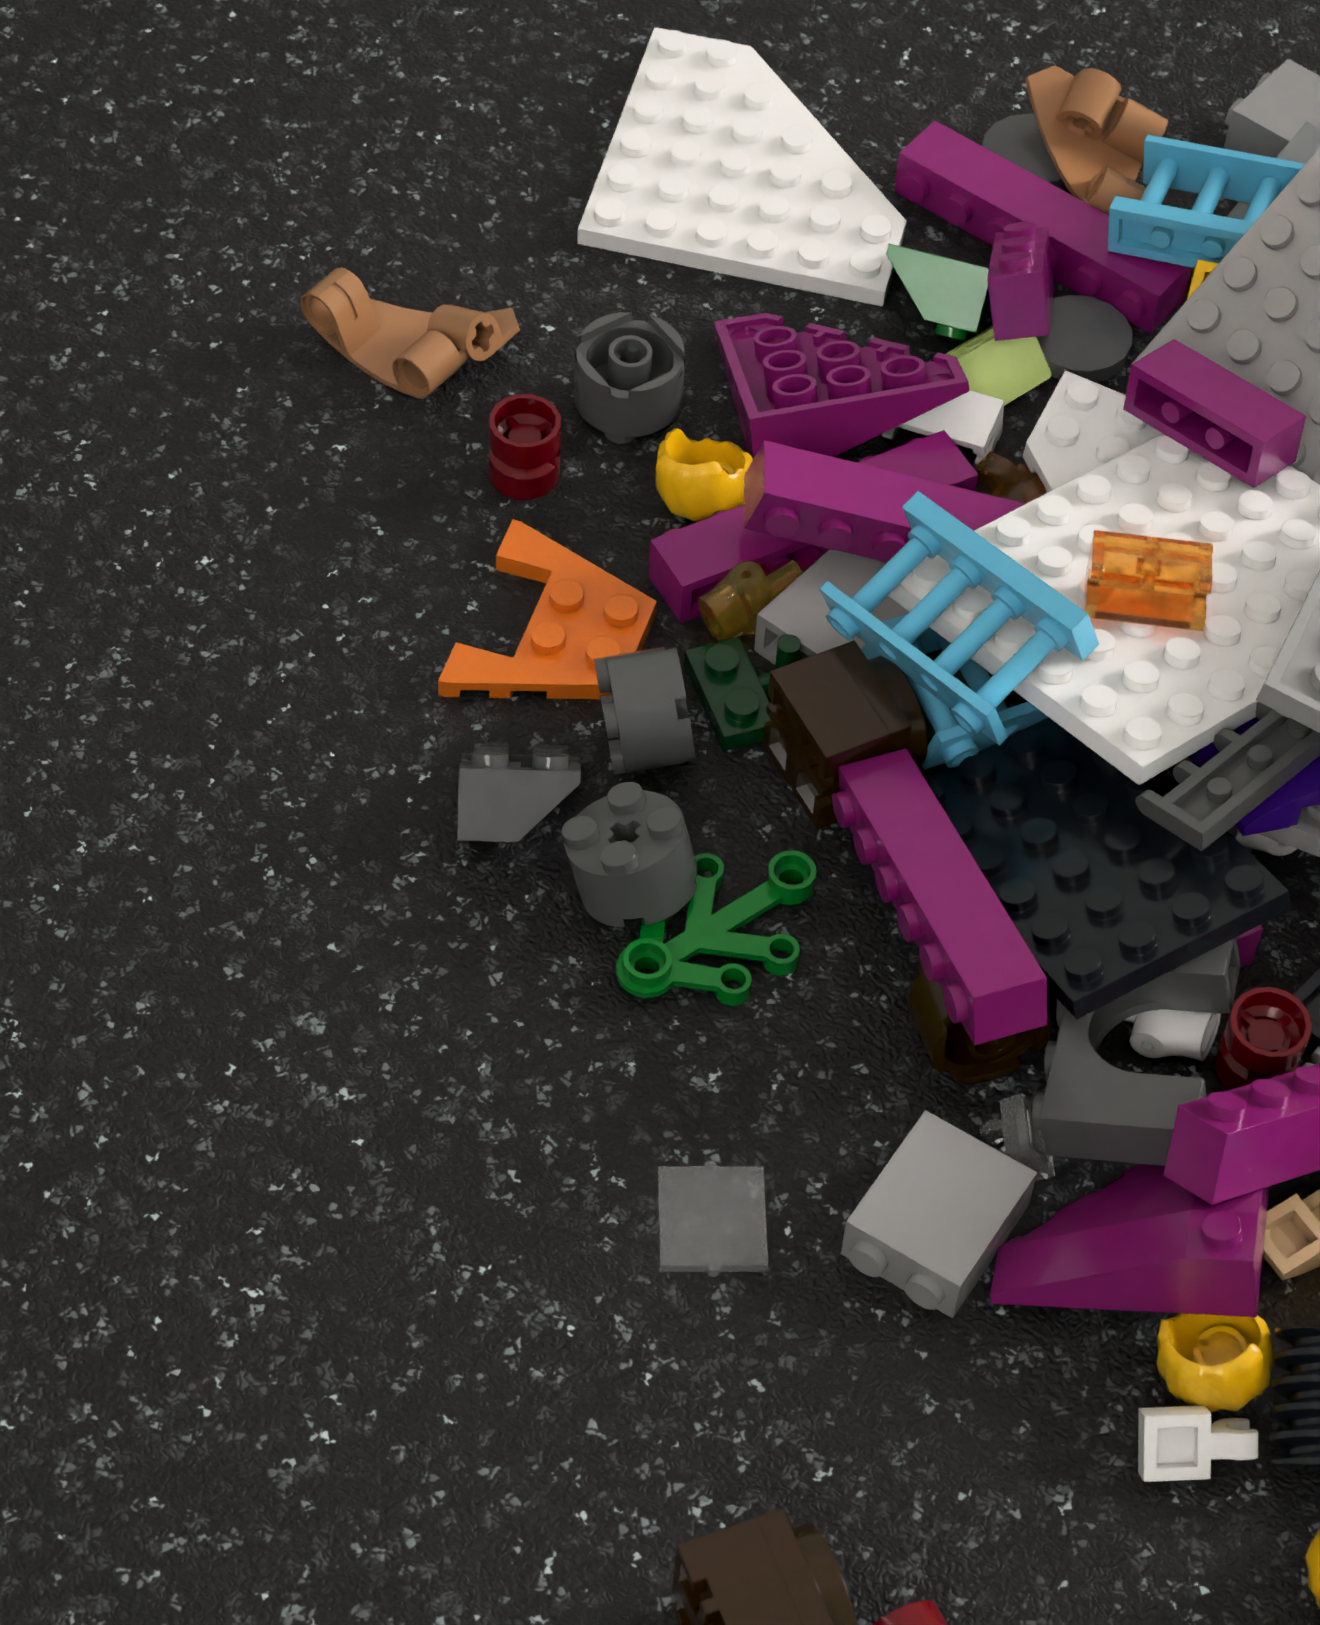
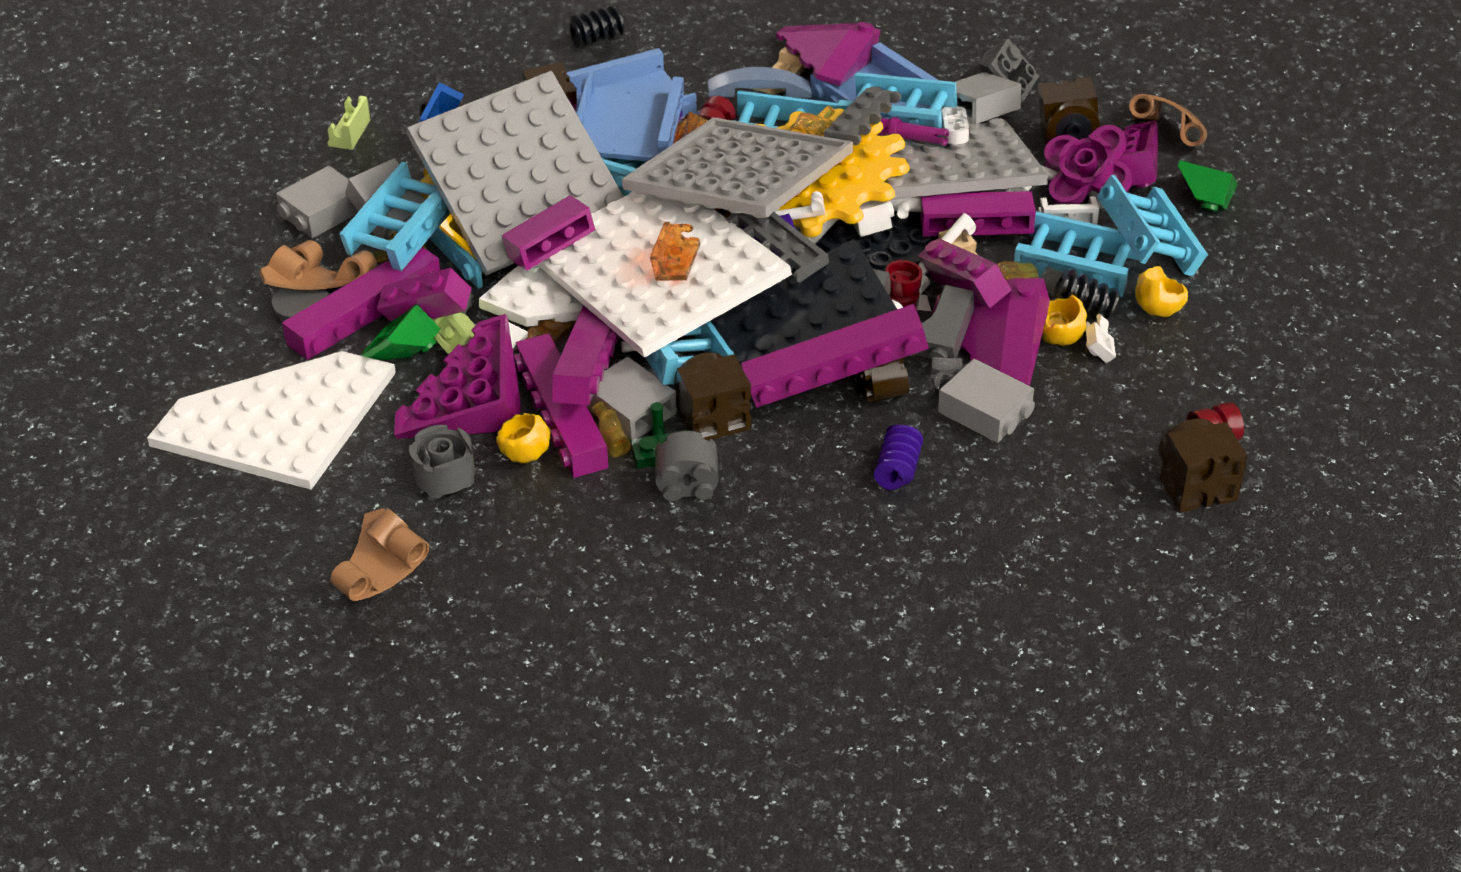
camera: 80 degrees left, 10 degrees down
(511, 793) = (726, 526): dark grey slope -> none
(524, 446) = (485, 506): dark red wheel -> none
(576, 620) = (610, 502): orange wing -> none
(631, 856) = (782, 478): dark grey brick -> none
(712, 1219) = (980, 482): clear piece -> none
(716, 936) = (834, 488): green plant -> none
(738, 1056) = (898, 456): none -> dark purple piece
(972, 563) = (681, 291): medium azure fence -> none

